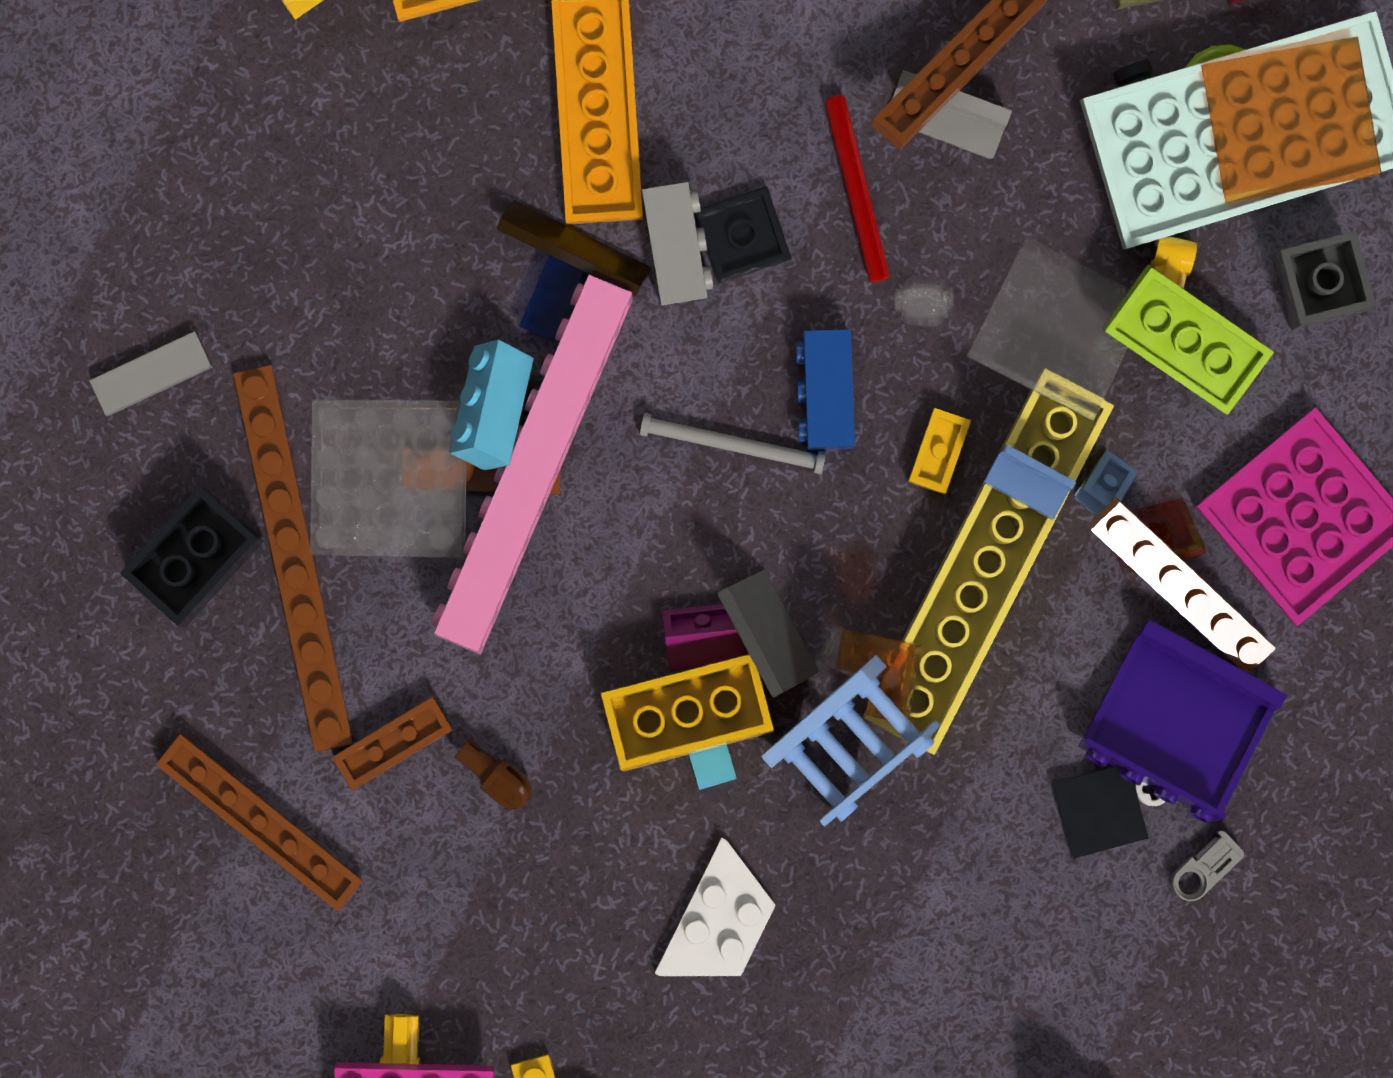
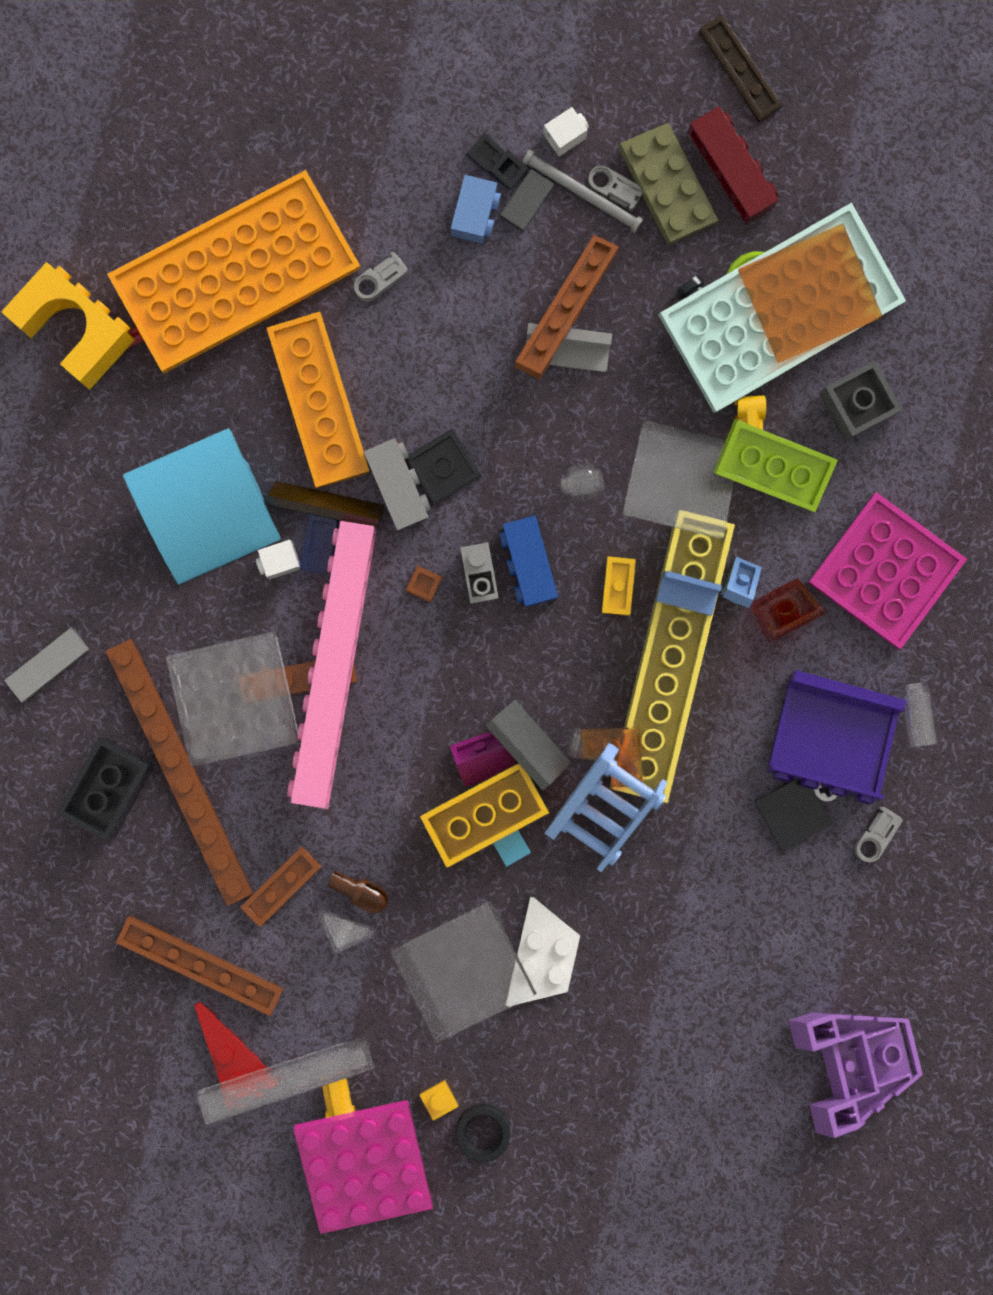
camera: 15 degrees left, 0 degrees up
(275, 966) = (227, 1051): none -> red wing
(339, 999) = (285, 1080): none -> clear brick
(409, 212) = (202, 506): none -> medium azure slope
(461, 823) = (343, 931): none -> clear slope
(491, 405) = (293, 630): medium azure brick -> none
(492, 307) = (278, 560): none -> white brick
(607, 916) = (462, 972): none -> clear piece
(679, 385) = (423, 584): none -> dark orange tile
(732, 443) = (471, 615): light grey bar -> none
(757, 388) = (479, 573): none -> light grey slope
(857, 188) = (516, 415): red axle -> none
(1181, 585) = (812, 640): plate -> none
(1300, 720) = (918, 715): none -> clear brick

